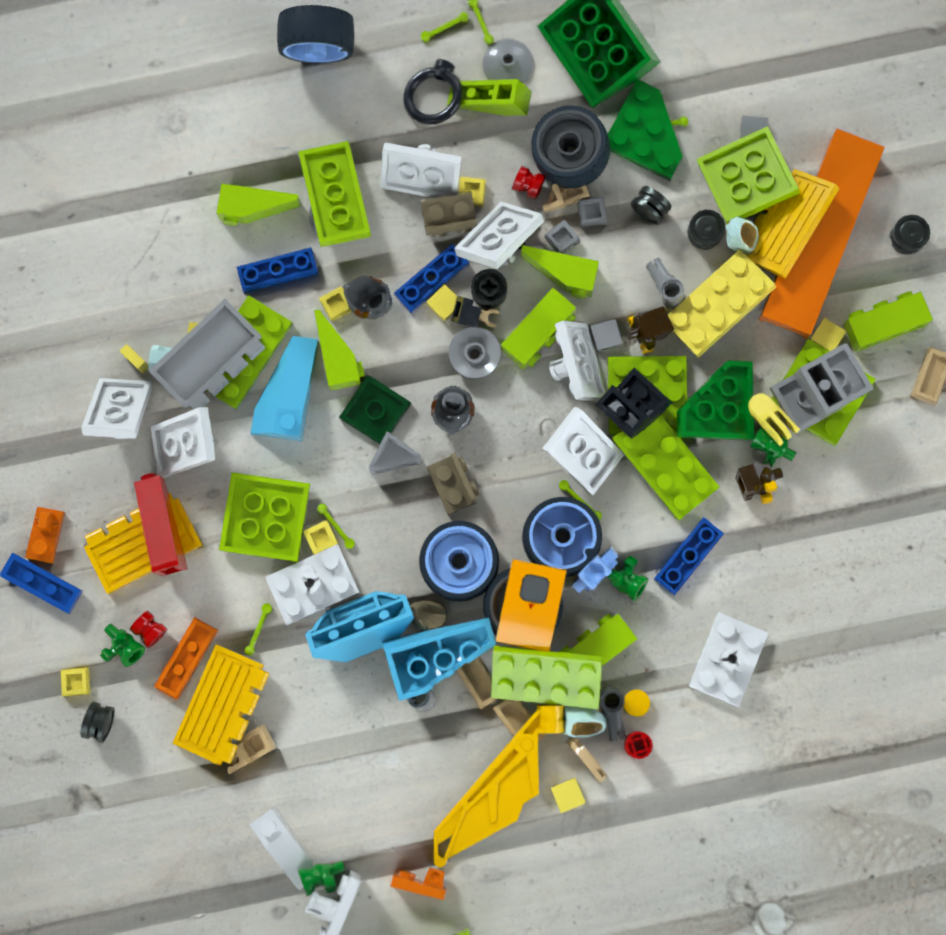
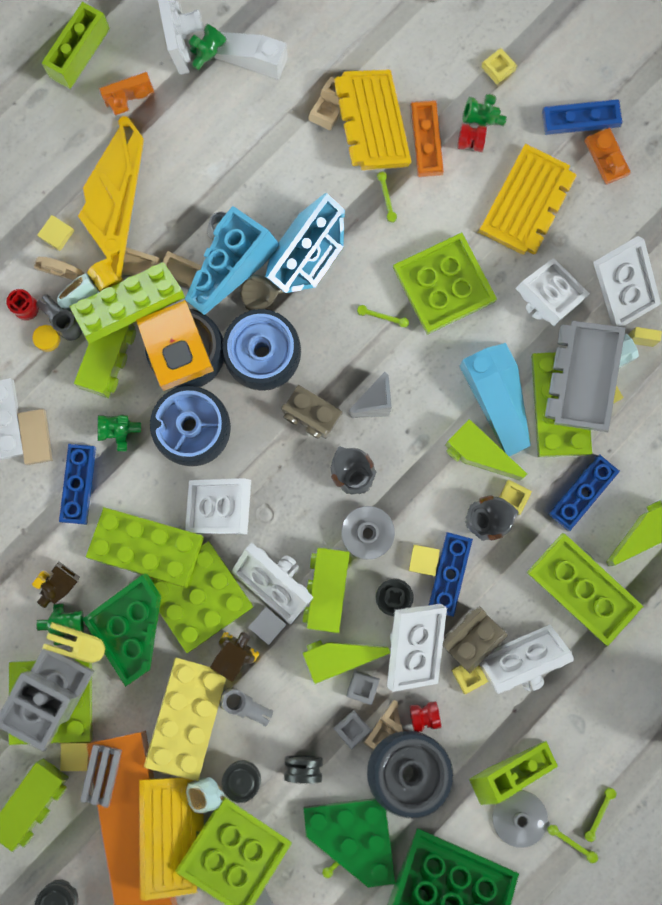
camera: 145 degrees right, 0 degrees up
(97, 722) = (458, 44): pearl dark grey wheel -> none
(159, 526) = (521, 213): red slope -> none
(312, 585) = (368, 258): white plate -> none
(320, 537) = (388, 298): light yellow tile -> none
(374, 409) = (417, 430): dark green tile -> none
(443, 72) = (570, 769): black piece -> none
(467, 314) = (396, 561): black piece -> none
(564, 486) = (218, 473): lime hinge -> none
(596, 570) = (141, 415): light blue plate -> none
(633, 403) = (201, 576): black slope -> none
(699, 621) = (35, 437): none -> tan tile
(829, 286) = (95, 799): none -> light grey tile

